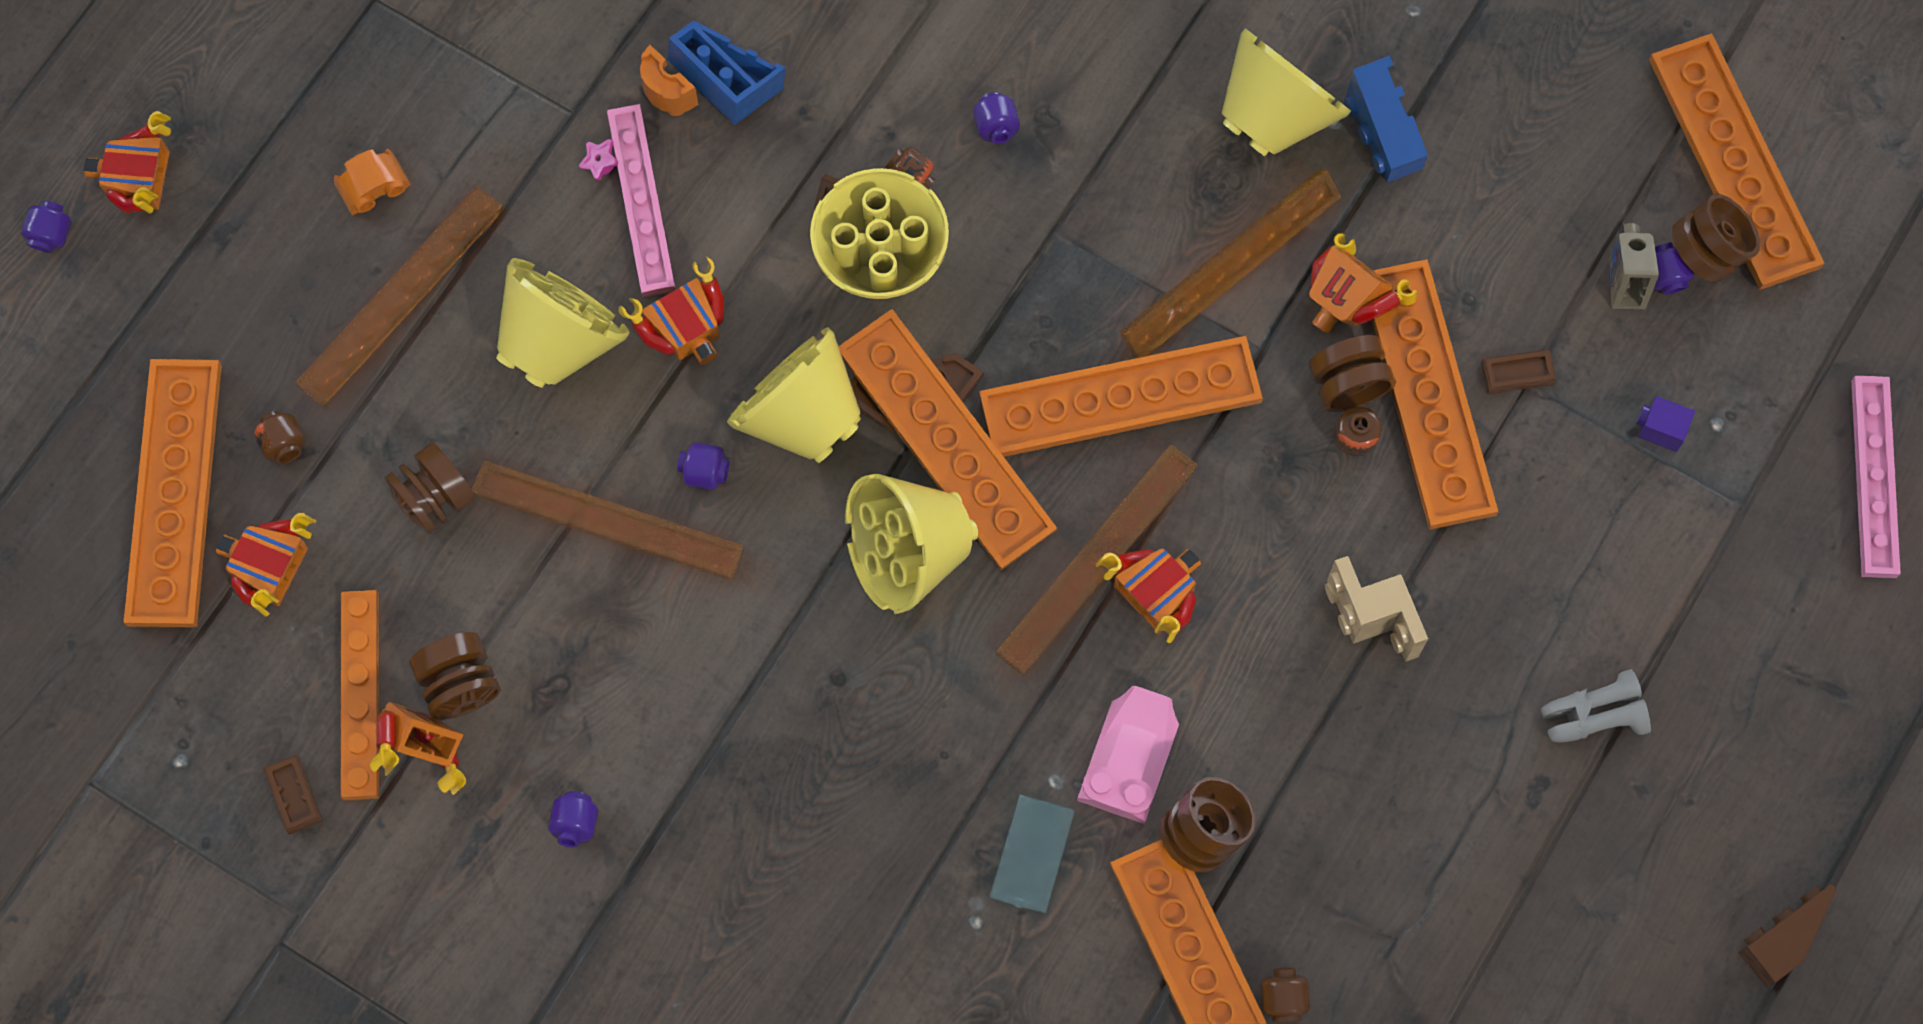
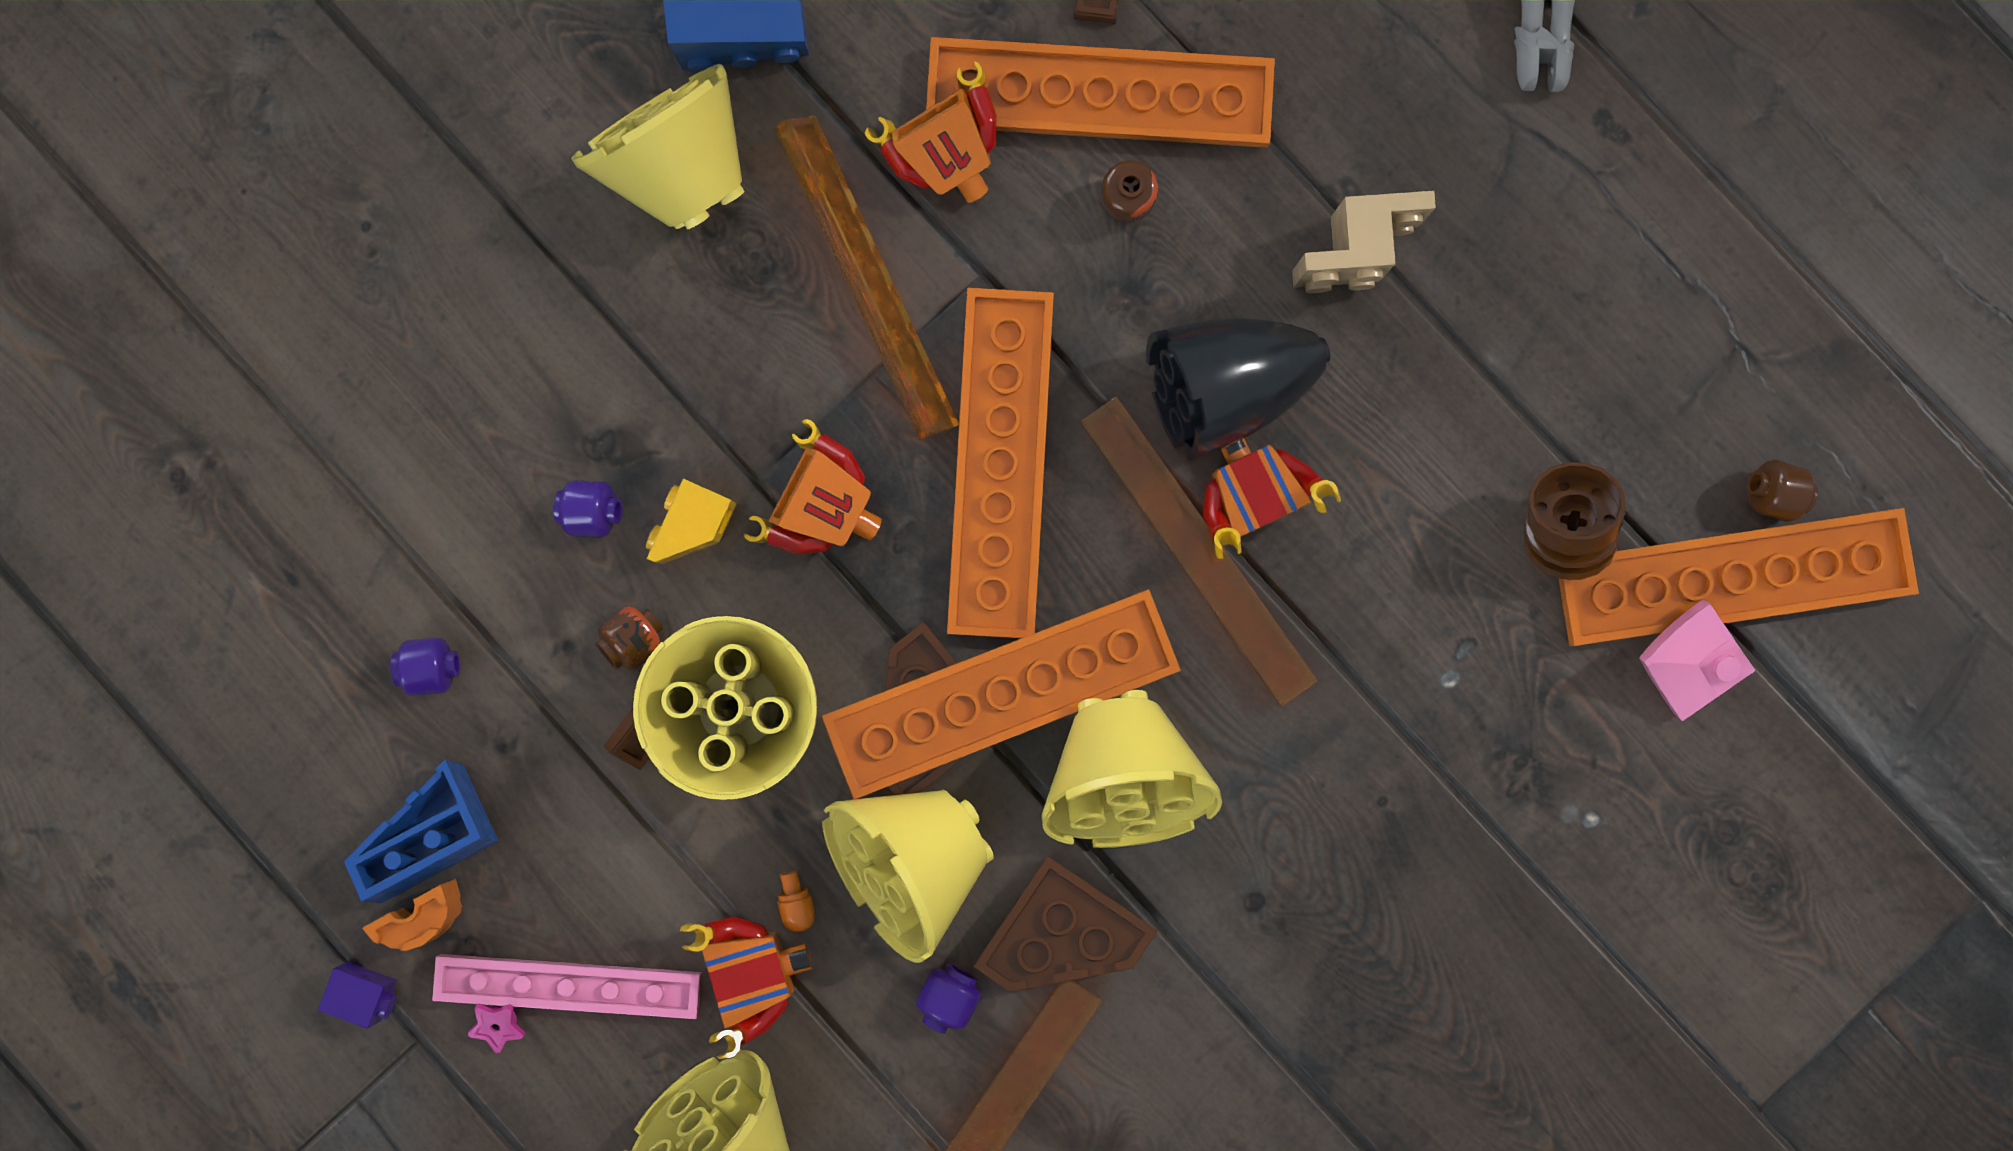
camera: 75 degrees left, 15 degrees up
(597, 61) = (358, 995): none -> dark purple brick
(744, 341) = (795, 903): none -> orange cylinder
(775, 534) = (1062, 934): none -> reddish brown plate
(847, 40) = (424, 666): none -> dark purple head
(1007, 191) = (692, 523): none -> yellow slope
(1032, 854) = (1534, 732): clear light blue piece -> none
(1052, 274) = (820, 501): none -> torso
(1126, 958) = (1695, 661): none -> bright pink plate
(1130, 754) = (1449, 585): bright pink slope -> none
(1239, 540) = (1230, 378): none -> black cylinder
(1351, 373) = (1059, 174): reddish brown wheel -> none

